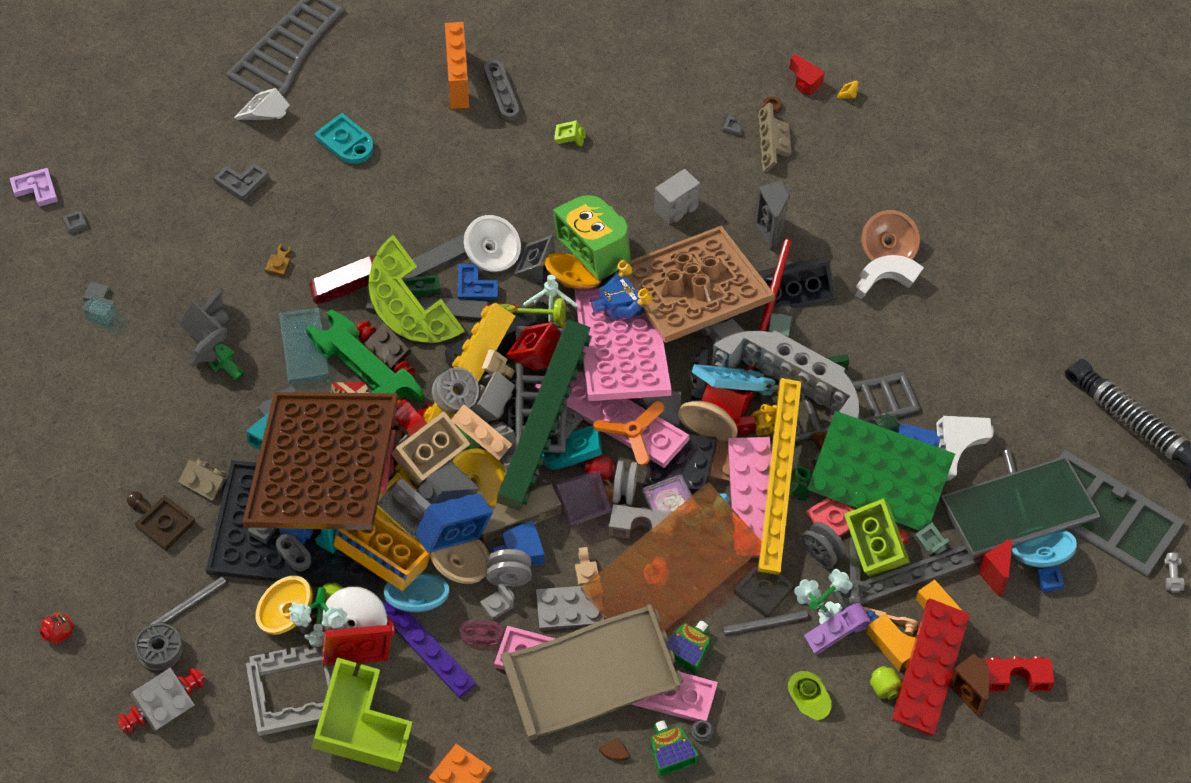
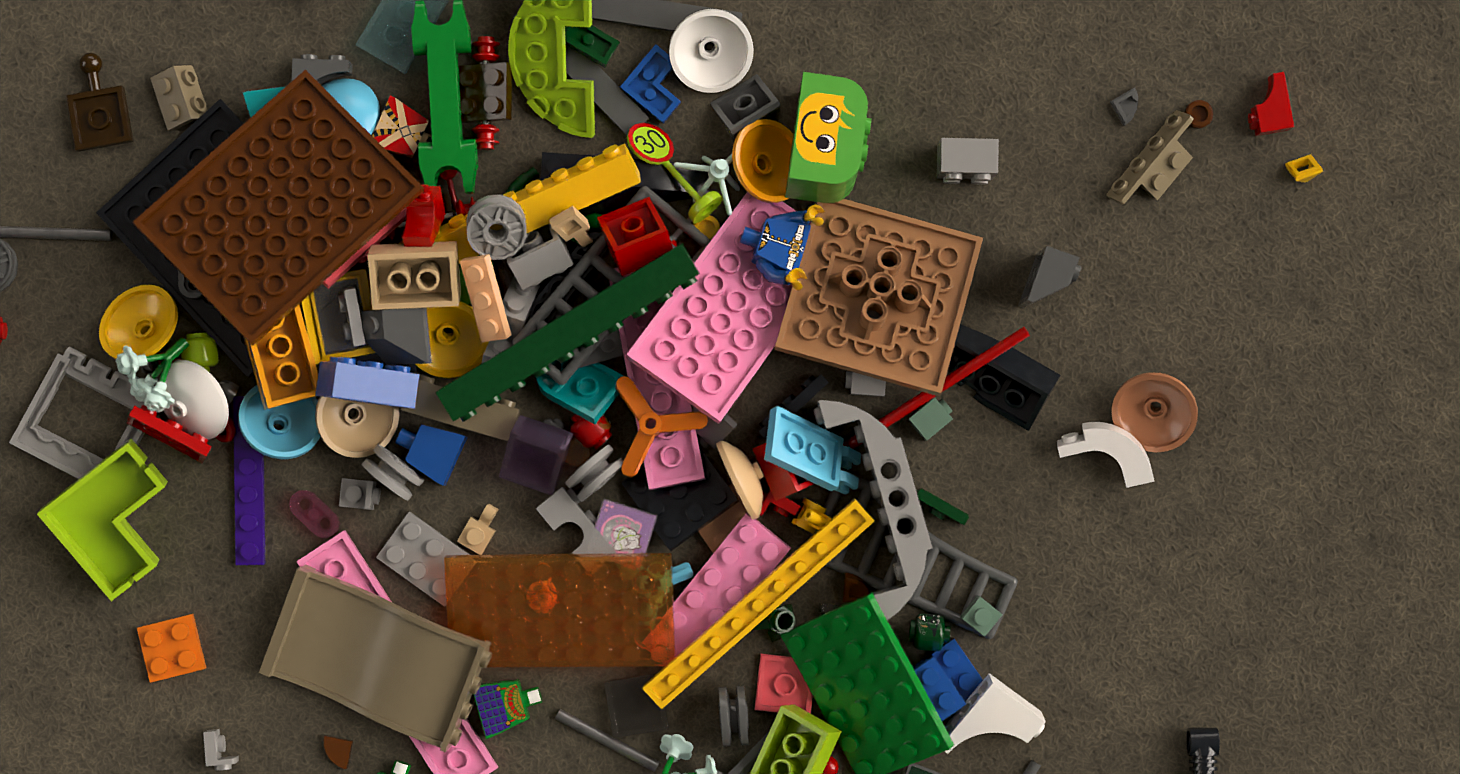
camera: 45 degrees right, 30 degrees up
(903, 395) = (981, 615): none -> sand green brick

